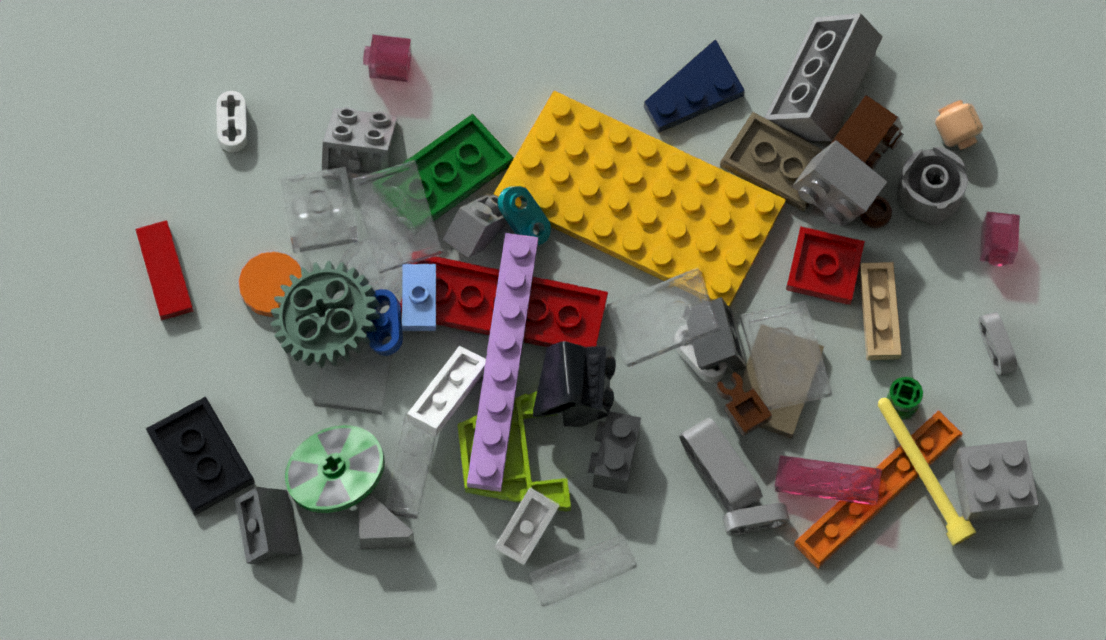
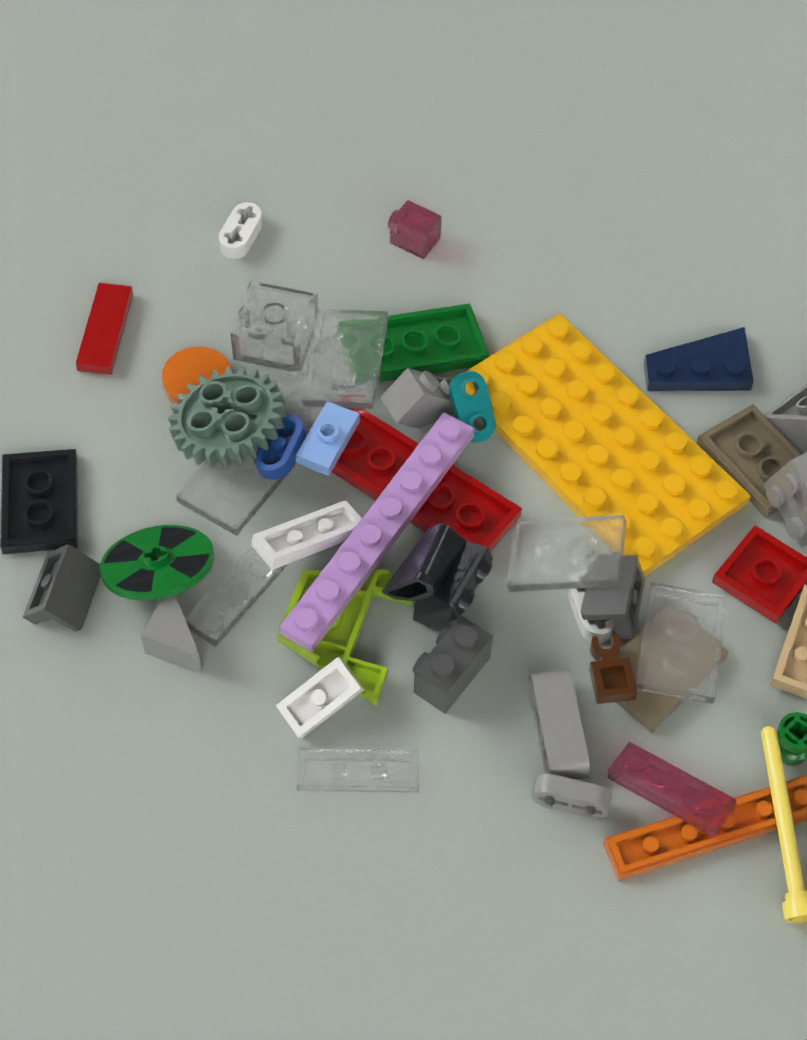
camera: 25 degrees right, 10 degrees down
(358, 141) = (346, 283): light grey bracket -> none

